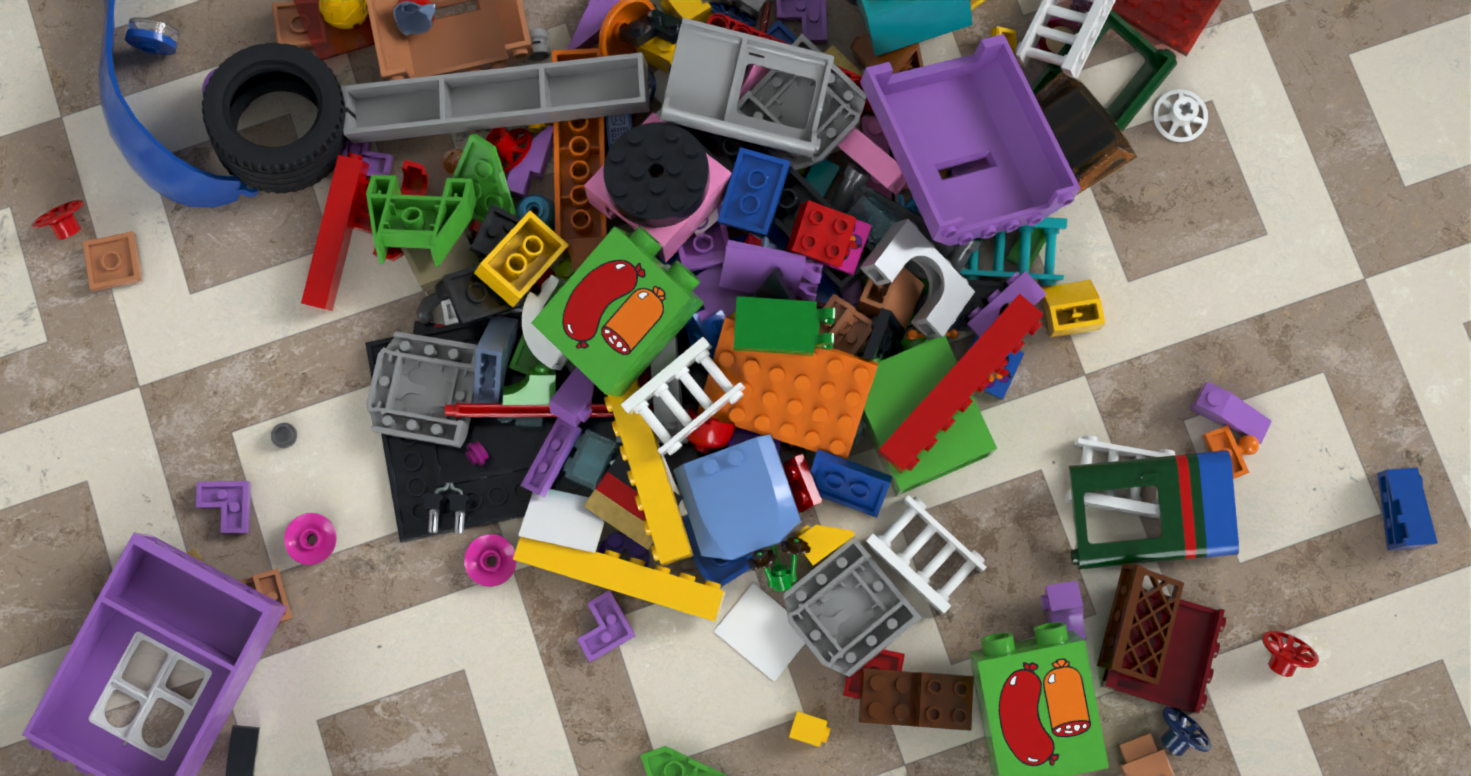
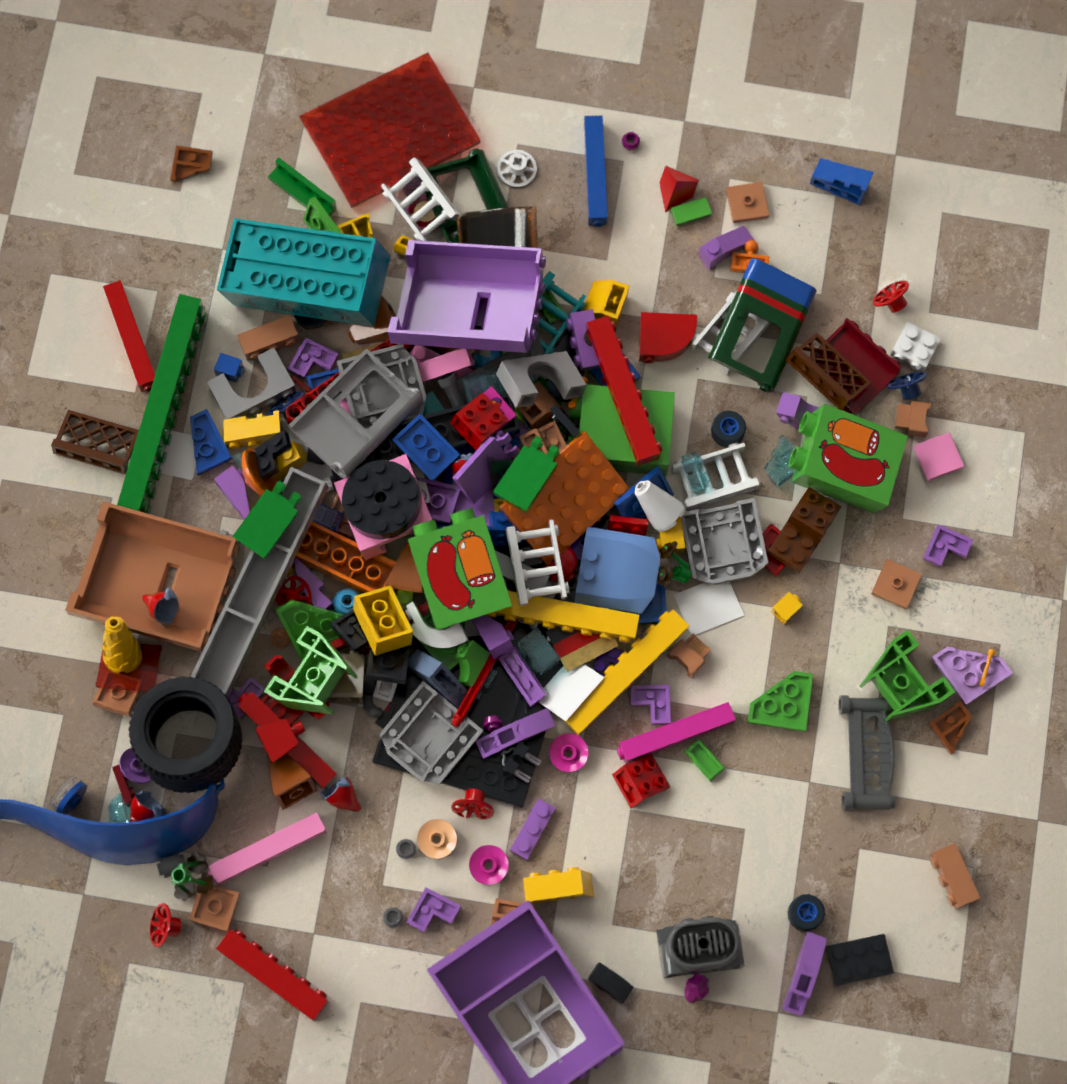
camera: 70 degrees left, 5 degrees down
(65, 366) = (273, 975): none -> red brick
(117, 216) = (185, 882): none -> dark brown plant
(135, 190) = (169, 863): none -> dark grey brick
(169, 100) = (117, 810): none -> clear light blue brick
(180, 125) = (144, 807): none -> hat
(191, 95) = (127, 792): none -> dark red plate
(198, 463) = (392, 917): none -> flat silver plate
(204, 282) = (267, 849): none -> bright pink brick
(289, 259) = (290, 781): none -> dark orange slope
(299, 459) = (433, 829): none -> light nougat dish
(306, 329) = (341, 795): none -> red hat
(323, 220) = (279, 737): none -> red torso
(323, 634) = (558, 885): none -> yellow wedge
(374, 481) = (472, 803): none -> red wheel
(380, 567) = (532, 829): none -> medium lavender plate
(478, 486) = (515, 732): none -> medium lavender slope
(503, 664) = (640, 780): none -> red bracket
(563, 63) = (268, 520): none -> green tile
(568, 726) = (704, 760): none -> bright green tile
(580, 675) = (676, 733): none -> dark pink brick
(687, 641) = (690, 654): none -> nougat piece
(845, 505) = (658, 506): none -> white cone
(908, 537) = (699, 477): none -> clear light blue hinge
(984, 623) = (777, 466): none -> clear light blue slope
(1003, 533) = (730, 422): none -> black wheel
(1070, 400) = (665, 335): none -> red brick
(1232, 206) = (595, 170): none -> blue brick
(1239, 716) = (915, 347): none -> white plate
(1250, 348) = (691, 211): none -> bright green tile
(1270, 314) = (676, 187): none -> red slope
(1300, 221) = (630, 136): none -> magenta plate
(1305, 409) = (747, 202): none -> nougat plate

